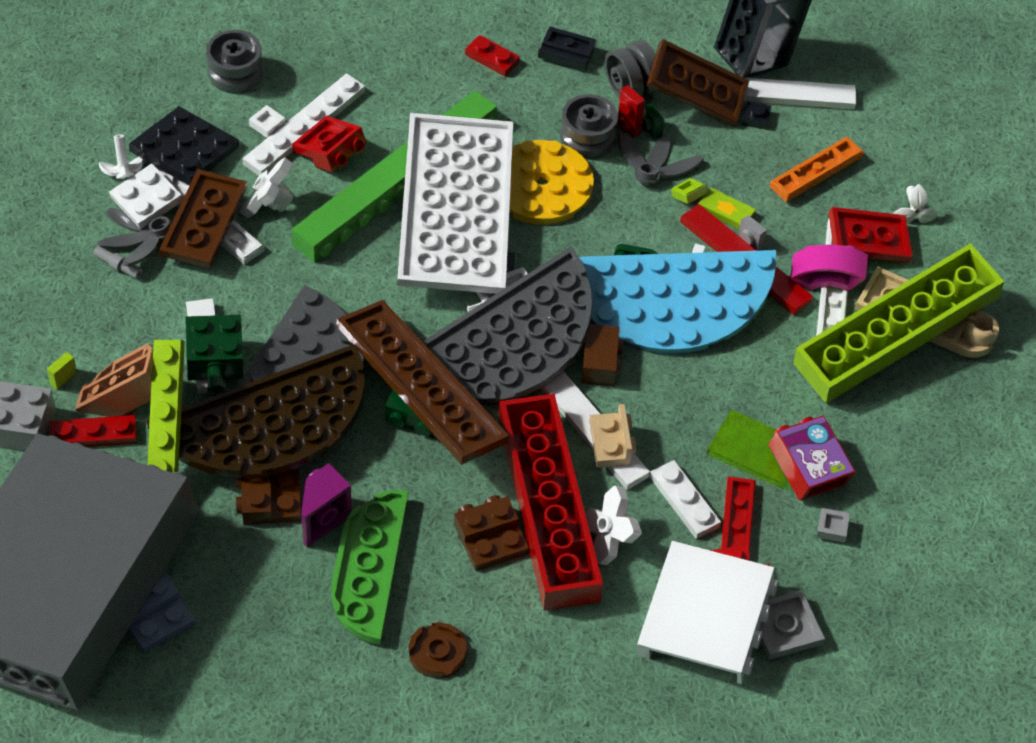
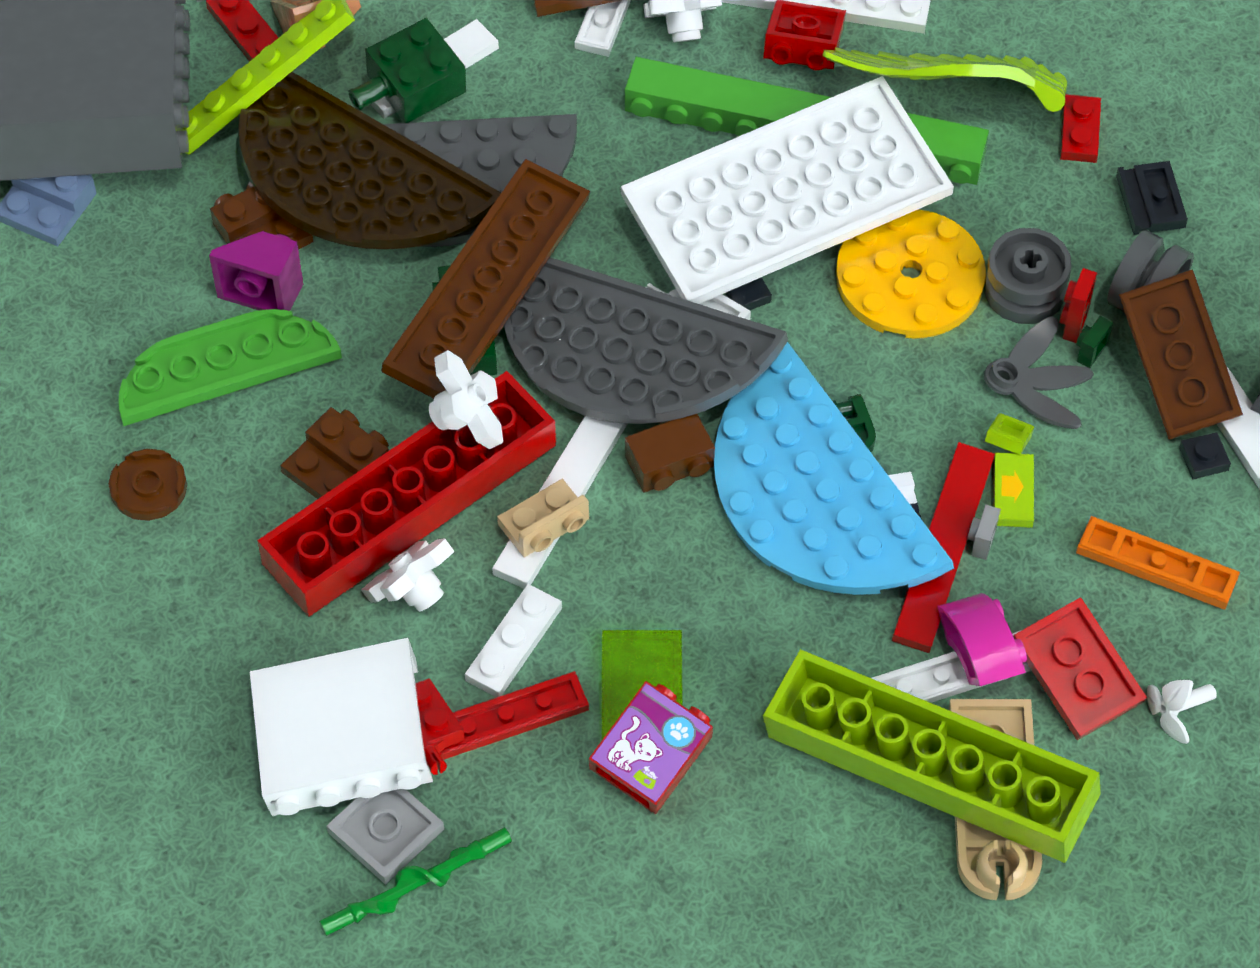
camera: 65 degrees right, 5 degrees up
(422, 82) = (1047, 86): none -> lime animal
(523, 427) = (465, 401): none -> white plant
(829, 626) = (413, 877): none -> green piece
(833, 525) = (570, 820): light grey plate -> none

